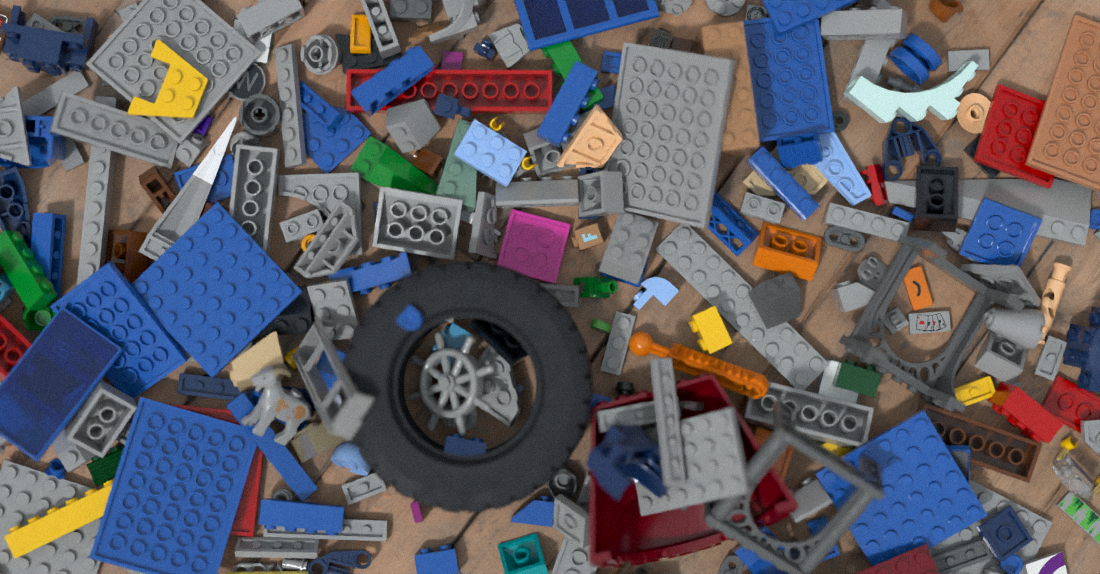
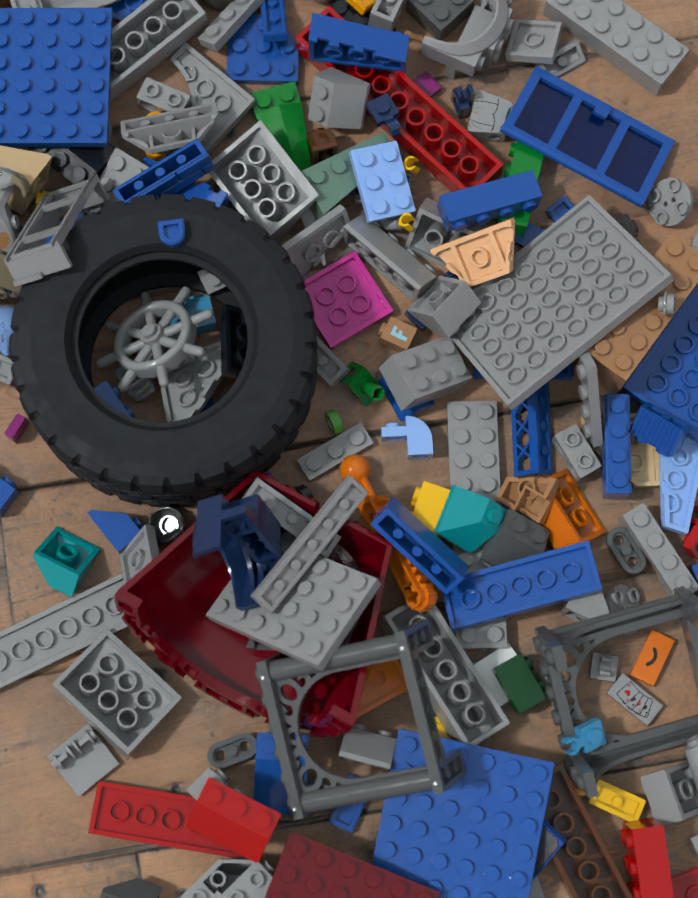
camera: 40 degrees right, 10 degrees down
(359, 280) = (168, 174): none -> blue brick
(729, 358) = (419, 545): none -> blue brick
(739, 312) = (469, 519): none -> teal slope
(742, 77) = (667, 304): none -> light grey plate
(744, 173) = (591, 403): none -> light grey plate
(760, 263) = (529, 496): none -> medium nougat slope
(807, 323) = (523, 586): none -> blue plate
(926, 374) = (587, 738): none -> dark azure plate

